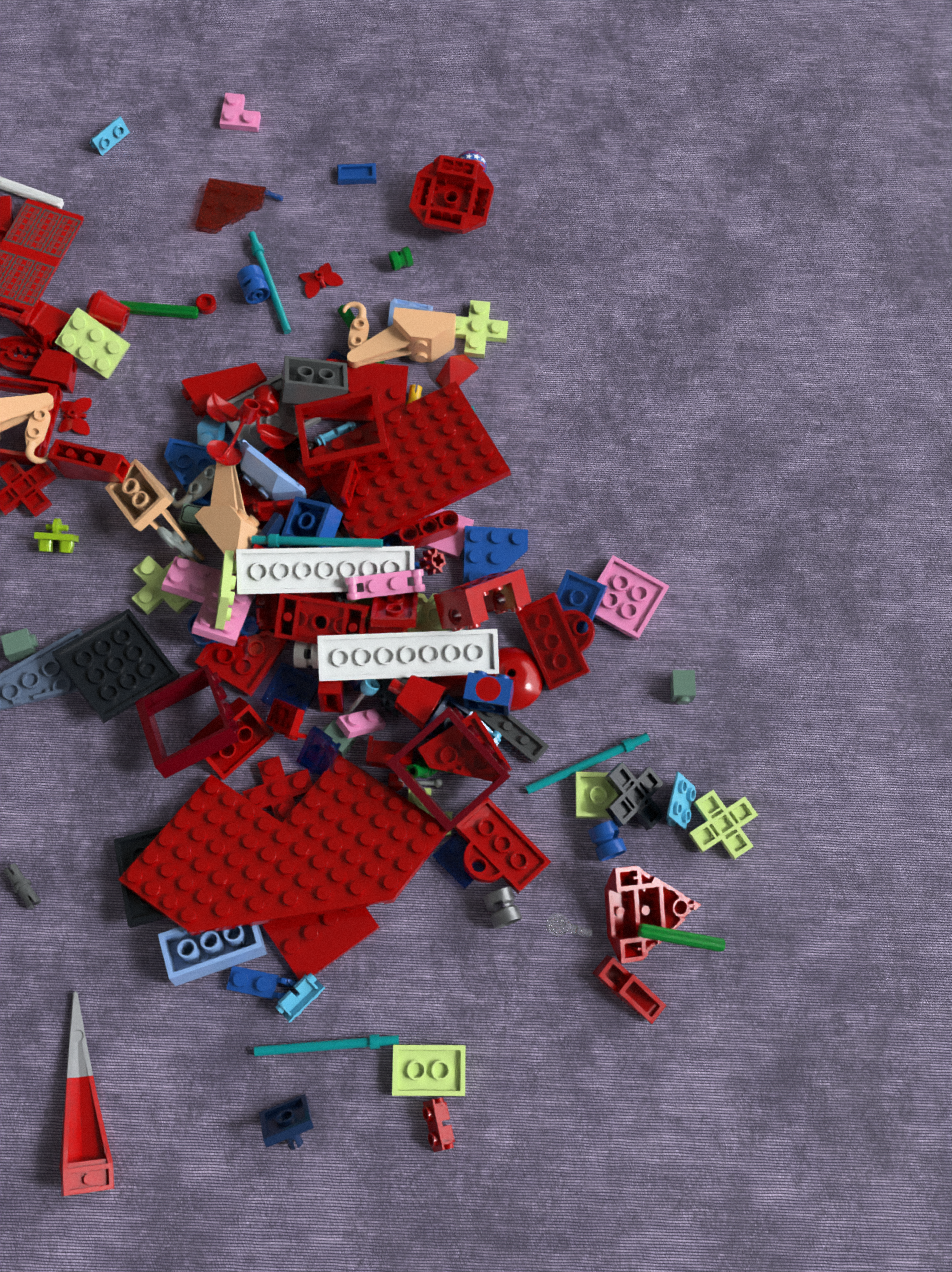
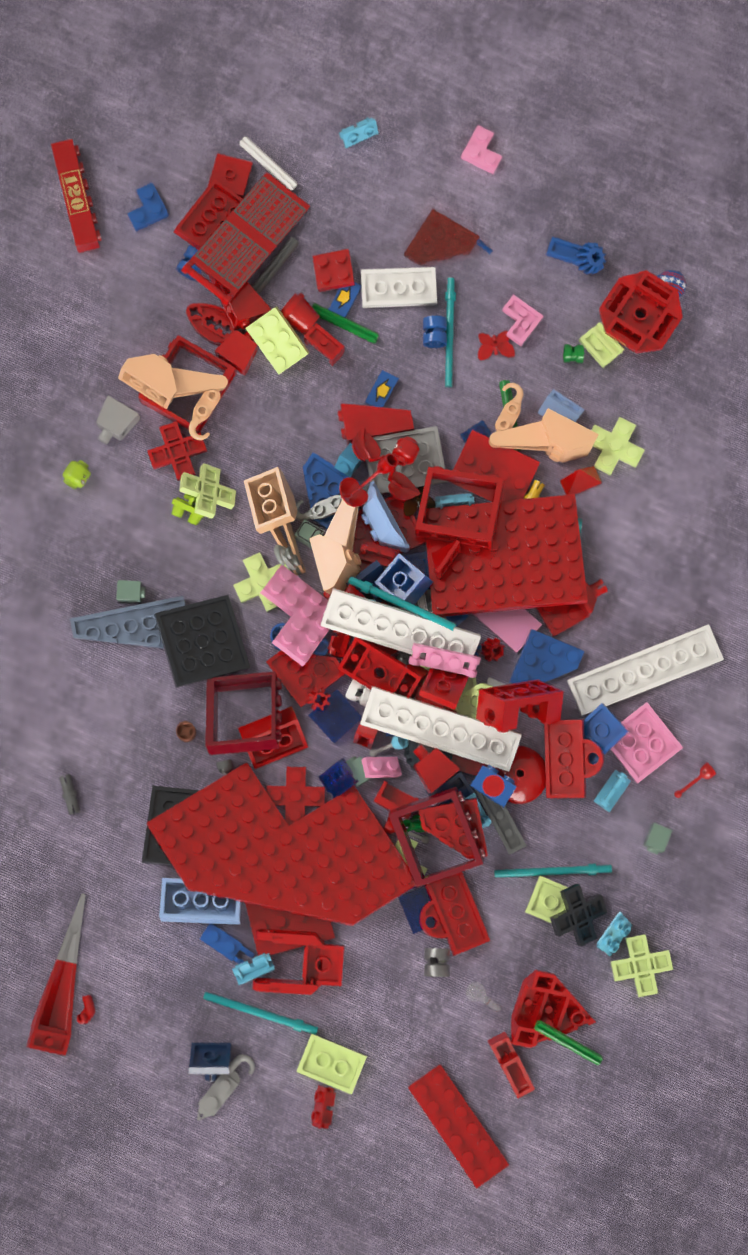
camera: 20 degrees right, 10 degrees up
(68, 278) = (275, 265): none -> dark grey axle
(69, 512) = (207, 490): none -> yellowish green plate
(73, 416) = (238, 398): red piece -> none
(88, 463) = (238, 455): red slope -> none
(125, 1124) = (88, 1011): none -> red arm
(129, 264) = (333, 270): none -> red plate
(129, 764) = (186, 728): none -> copper wheel
(145, 331) = (324, 343): none -> red panel
(150, 285) = (345, 299): none -> blue tile
(187, 788) = (225, 766): none -> dark grey hinge
(201, 258) = (398, 287): none -> white plate
(206, 304) = (387, 332): red tile -> none
(220, 355) = (381, 390): none -> blue tile
(225, 595) = (313, 615): yellowish green plate -> none
(269, 681) = (322, 700): none -> red gear
(286, 719) = (322, 742): red bracket -> none
(312, 379) = (452, 449): dark grey slope -> none
(314, 1151) = (222, 1088): none -> light grey plate
(341, 246) = (525, 318): none -> bright pink plate
(374, 961) = (320, 964): none -> red plate
(382, 168) = (590, 258): none -> blue gear
(425, 242) = (600, 345): none -> yellowish green plate
(435, 522) = (508, 616): red beam -> none
(495, 500) = (566, 616): none -> red plate
(597, 525) = (645, 670): none -> white plate
(599, 1083) = (458, 1126): none -> red plate
(607, 841) = (541, 942): blue wheel -> none
(615, 656) = (612, 790): none -> medium azure hinge
(703, 602) = (706, 772): none -> red hinge

